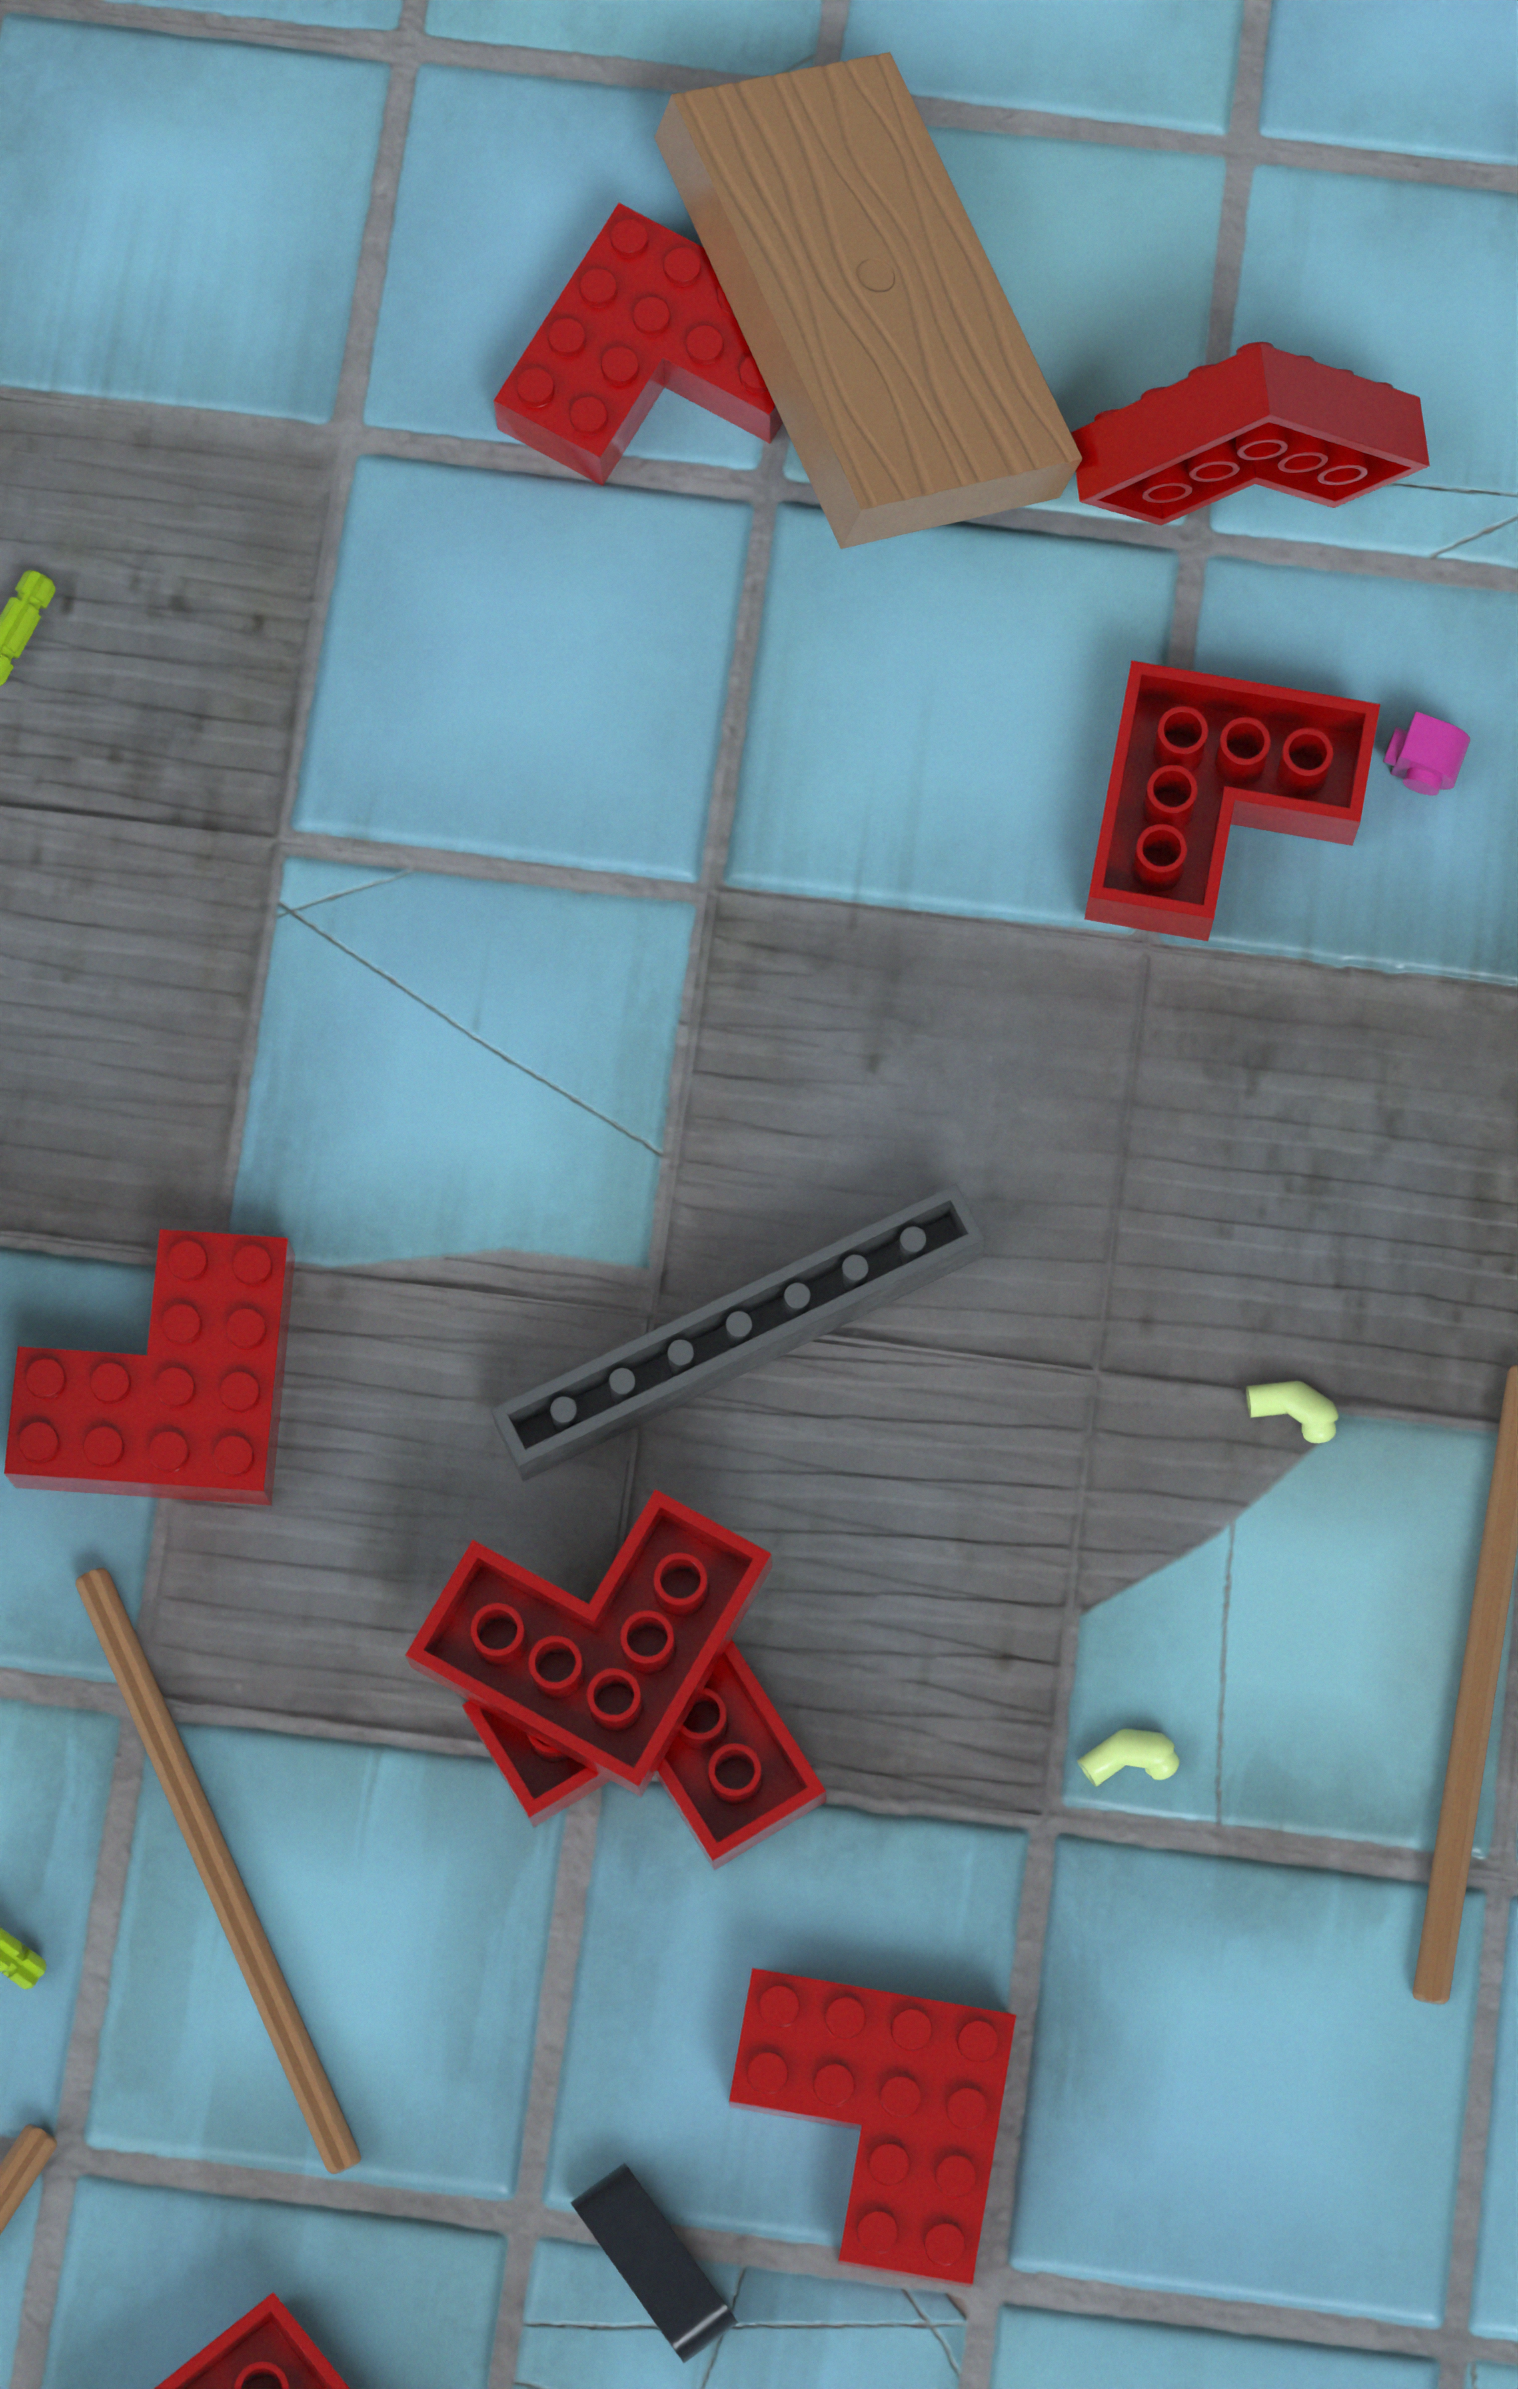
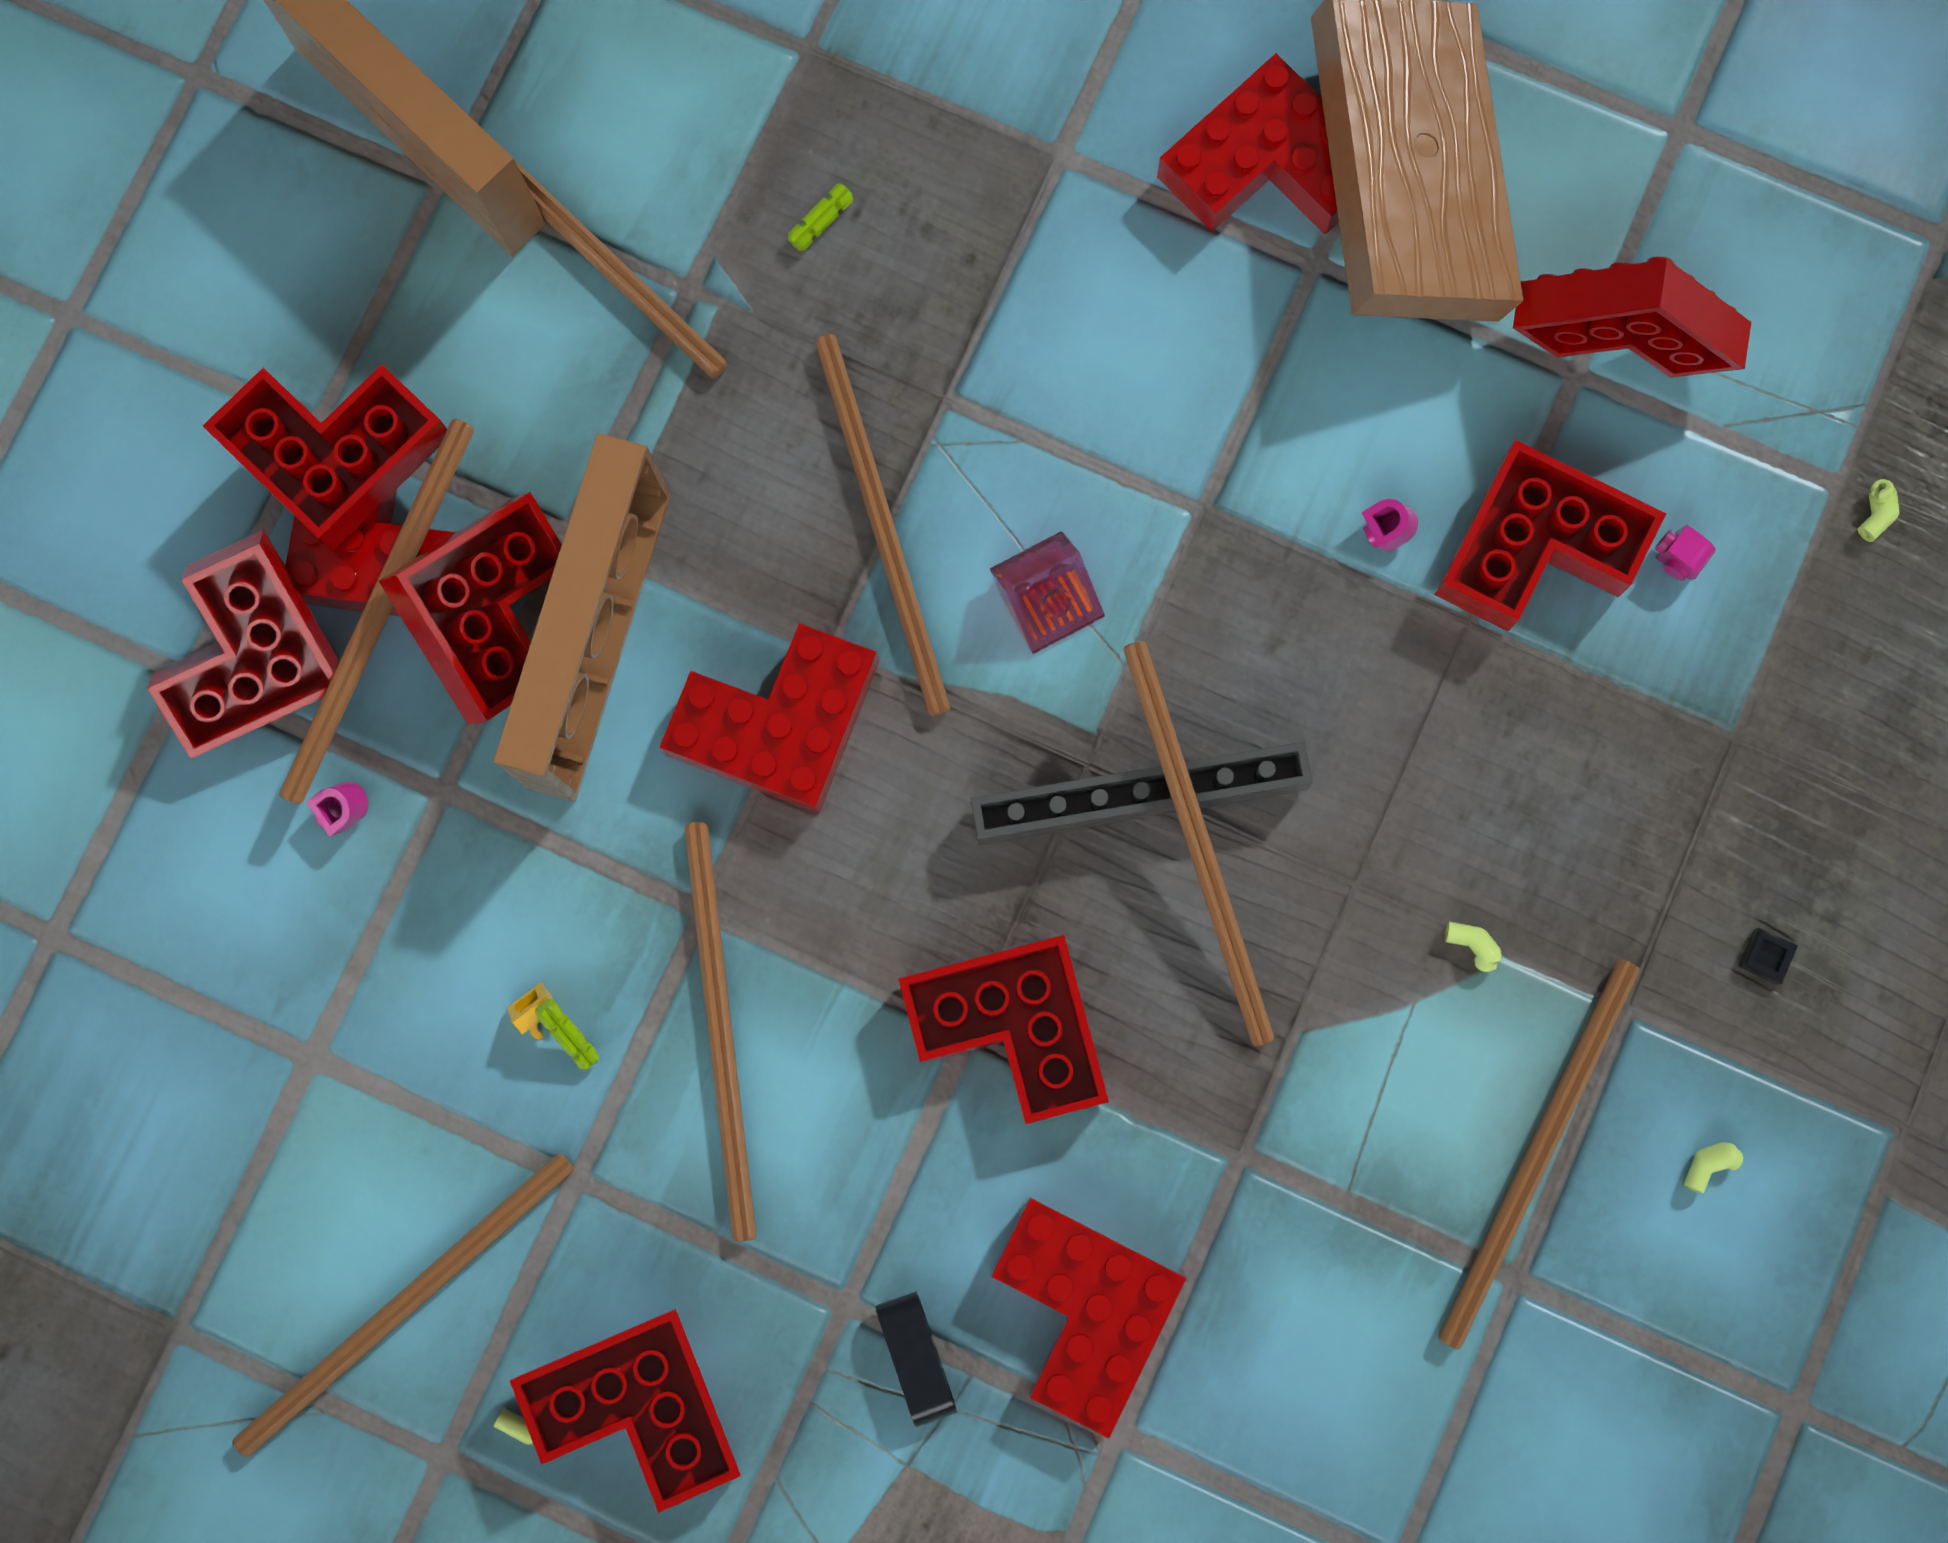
camera: 20 degrees right, 5 degrees up
(241, 1053) = (882, 526): none -> medium nougat axle
(515, 1078) = (1047, 591): none -> clear pink slope
(603, 1675) = (992, 990): red brick -> none
(846, 1377) = (1198, 842): none -> medium nougat axle
(988, 835) = (1389, 524): none -> dark pink plate
(1131, 1748) = (1308, 1128): yellowish green arm -> none

